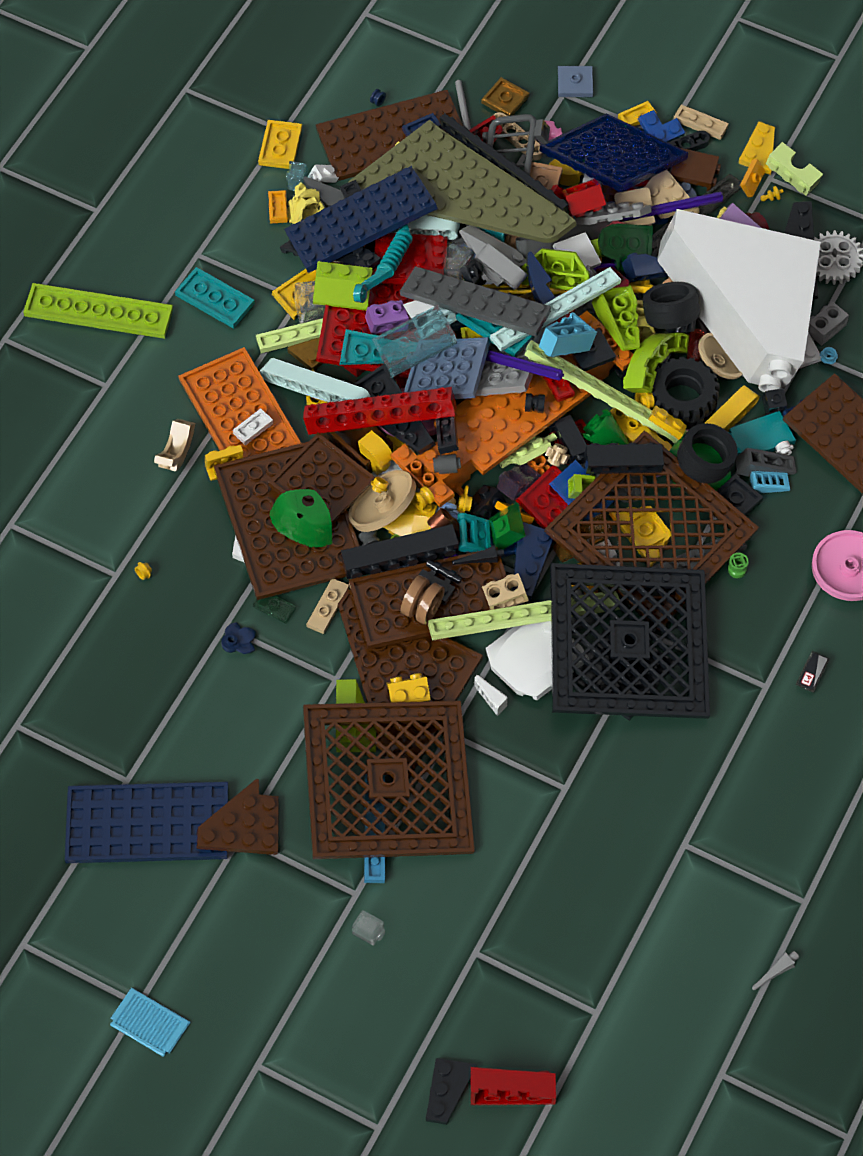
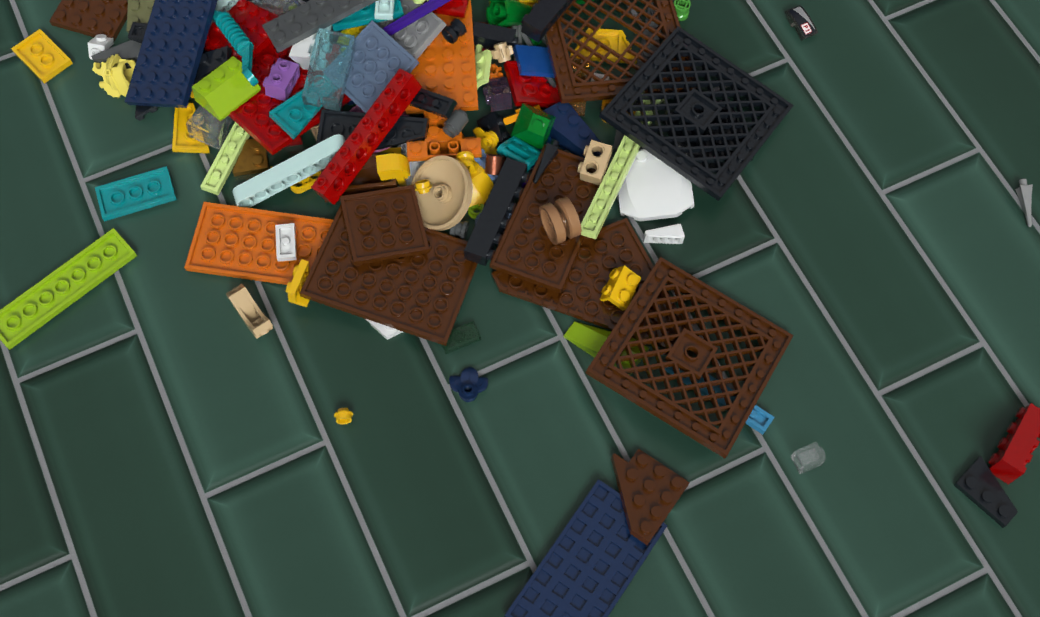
camera: 55 degrees left, 5 degrees up
(278, 206) = (97, 95): light orange plate -> none
(296, 174) = (81, 62): clear light blue brick -> none
(313, 528) = (397, 266): green piece -> none
(327, 606) = (492, 298): tan plate -> none
(451, 576) = (533, 207): black plate -> none
(578, 484) = (539, 57): lime panel -> none

